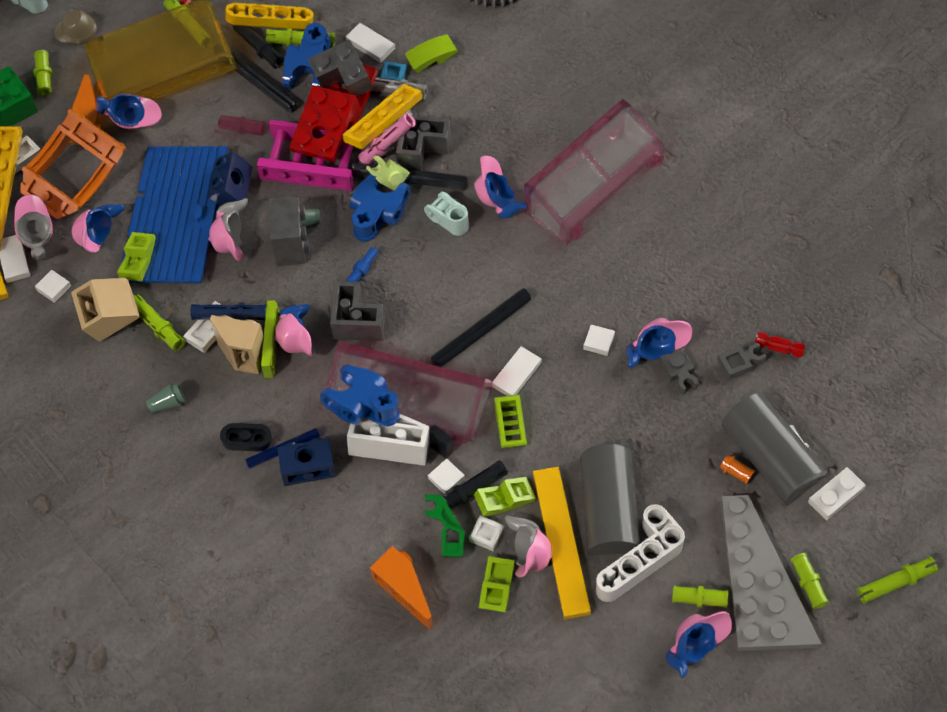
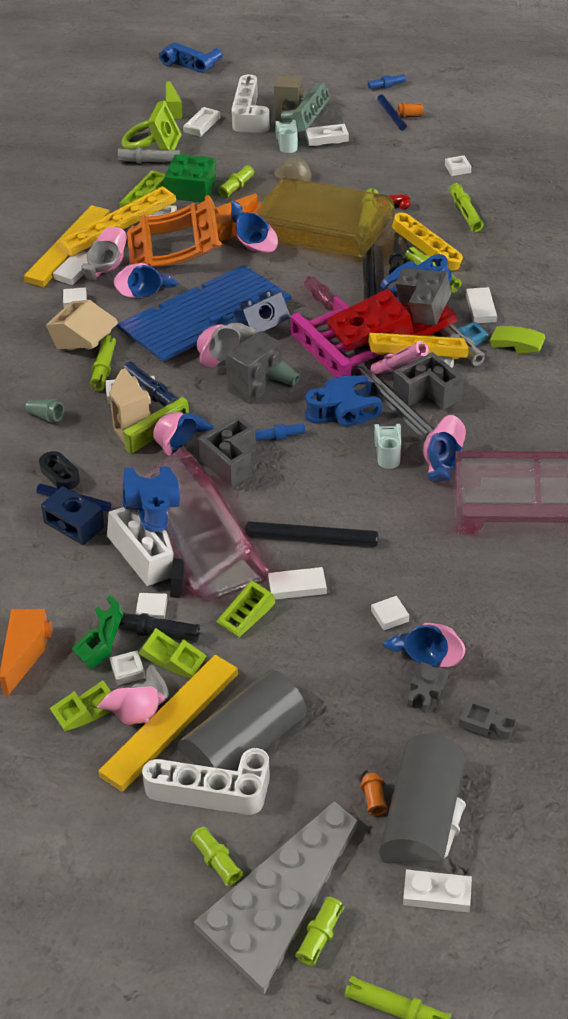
camera: 45 degrees right, 15 degrees down
(138, 256) = (148, 315): lime slope -> none
(388, 173) = (374, 383): yellowish green plate -> none
(696, 638) = (166, 880): blue hair -> none
(780, 344) = (537, 737): red axle -> none

